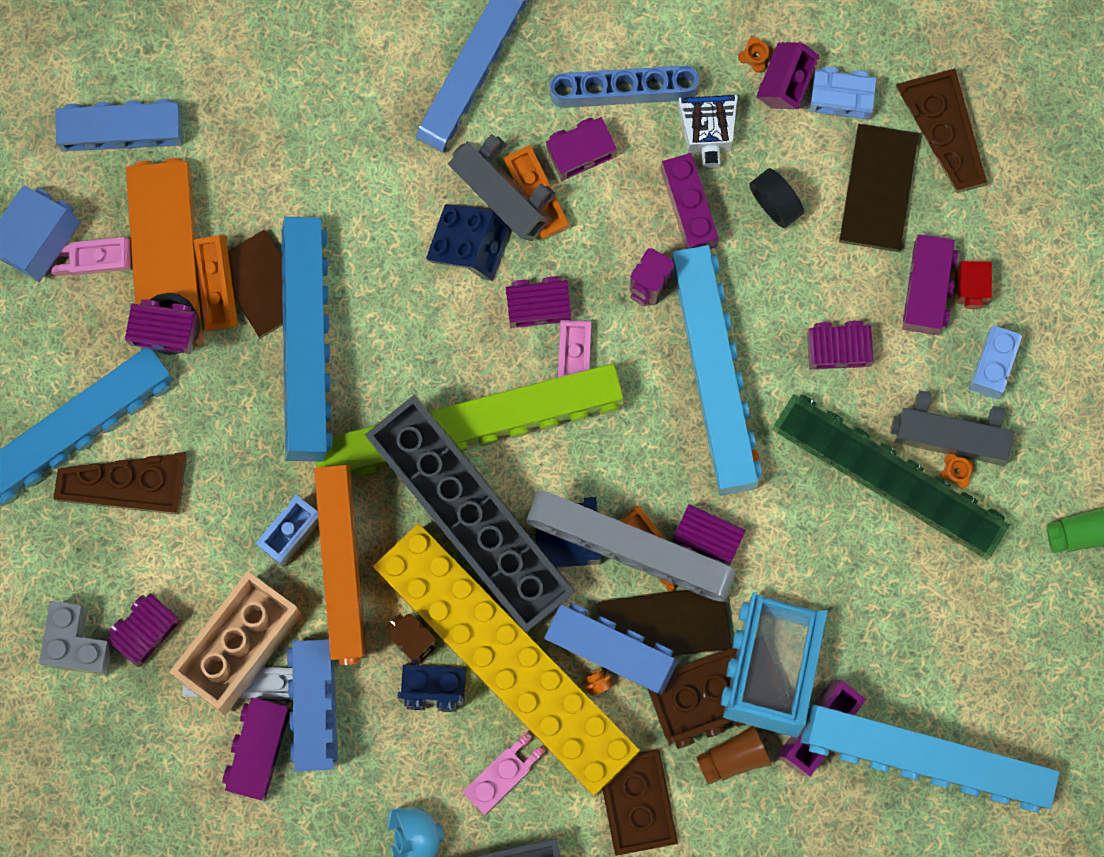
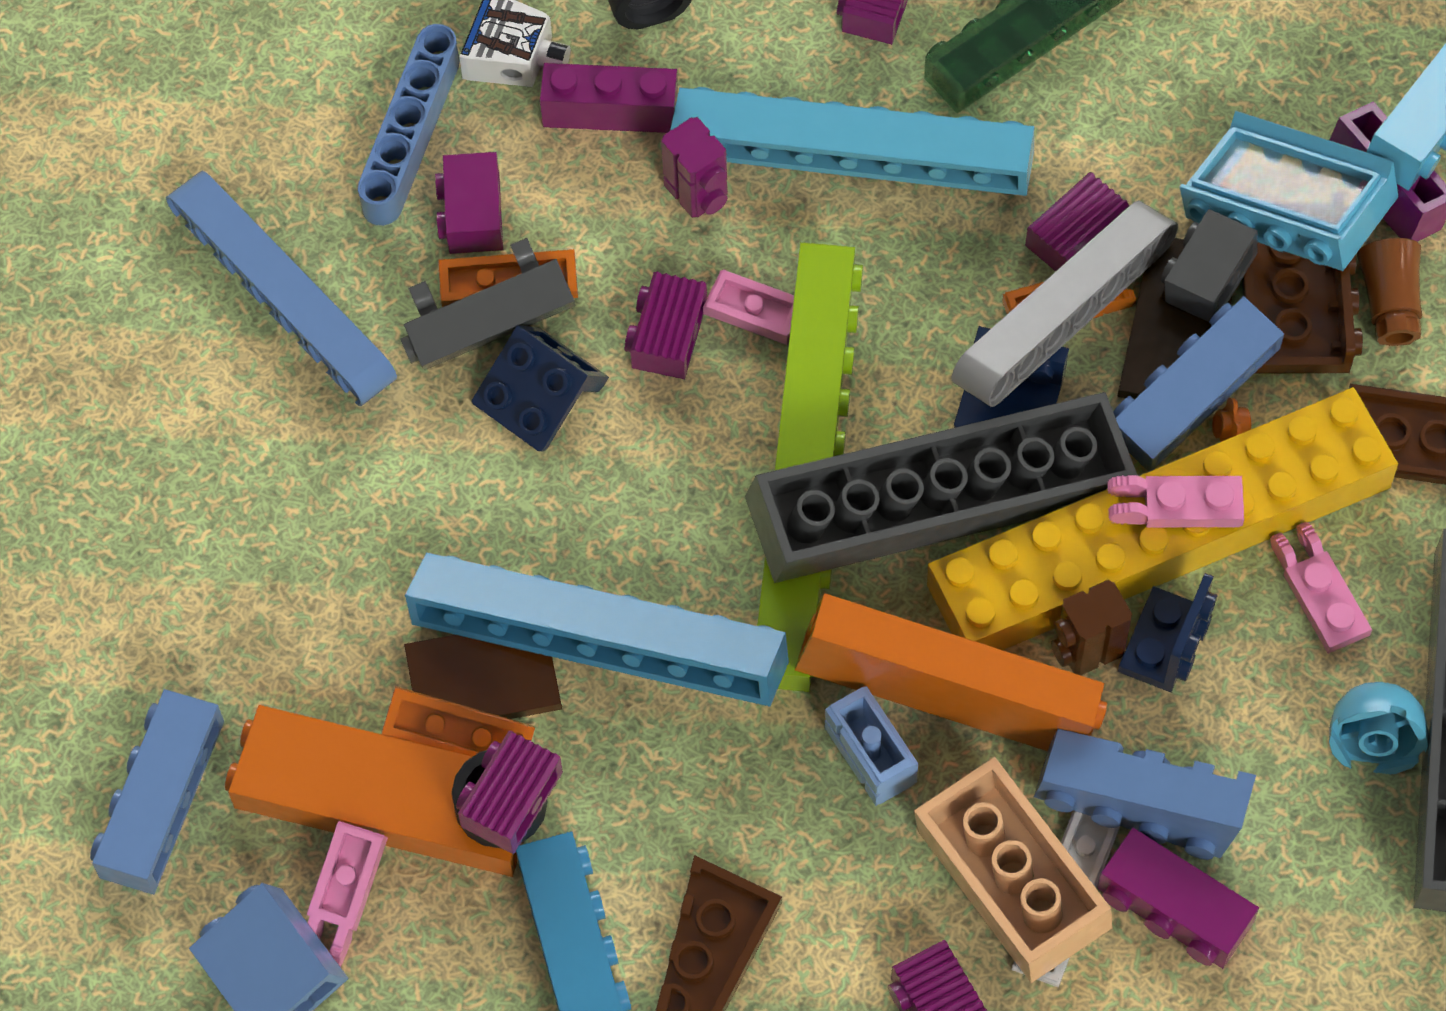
camera: 70 degrees left, 15 degrees down
(511, 666) = (1178, 501): none -> bright pink hinge
(701, 630) = (1210, 265): none -> dark grey brick

